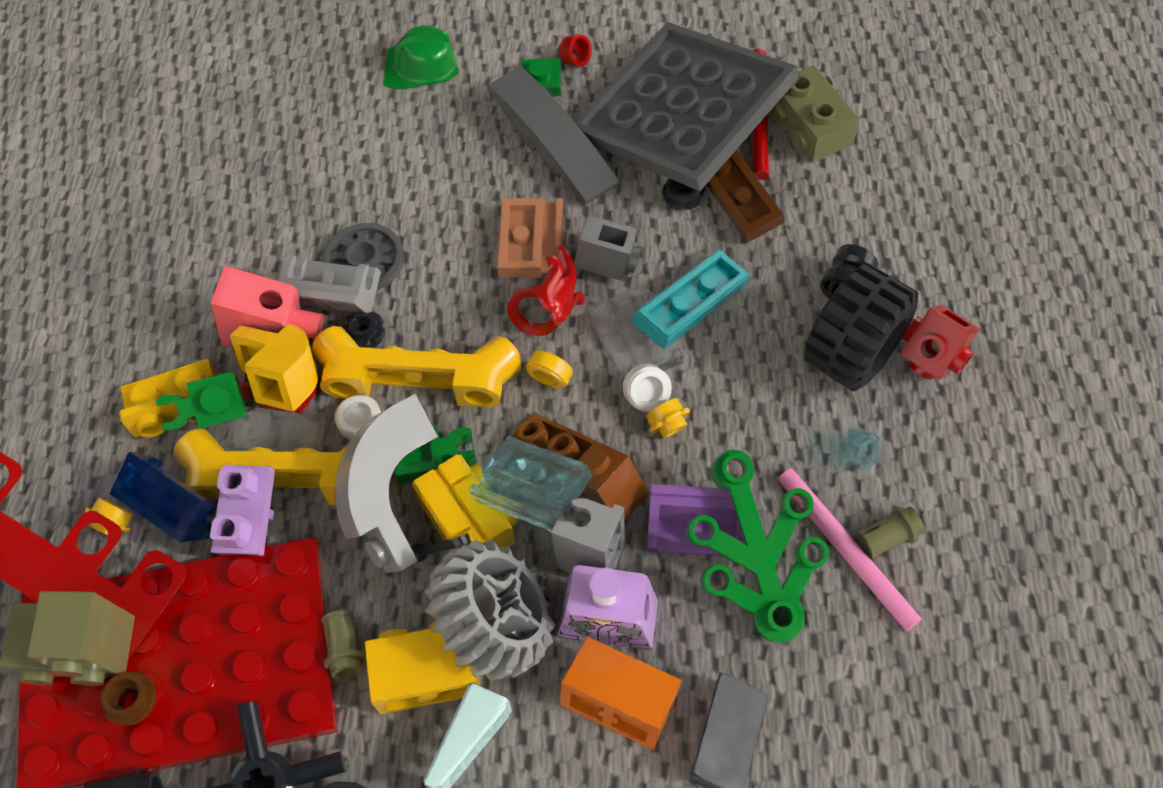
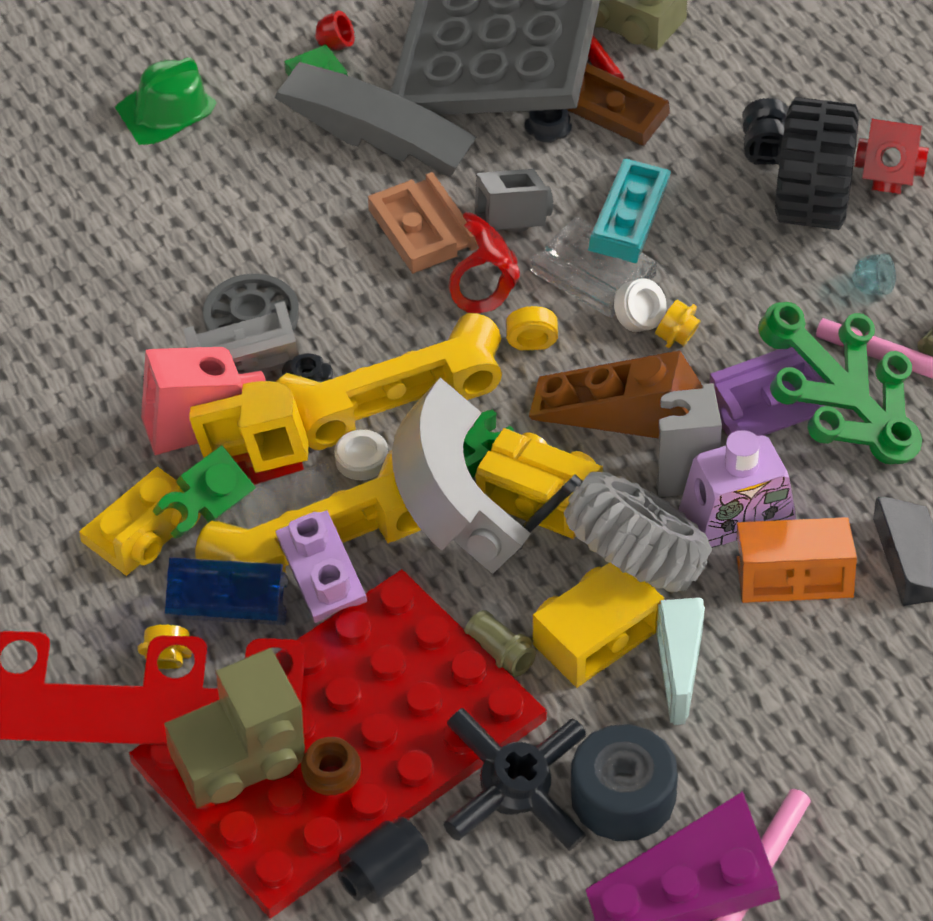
camera: 30 degrees left, 10 degrees down
(531, 483) = (602, 411): clear light blue plate -> none

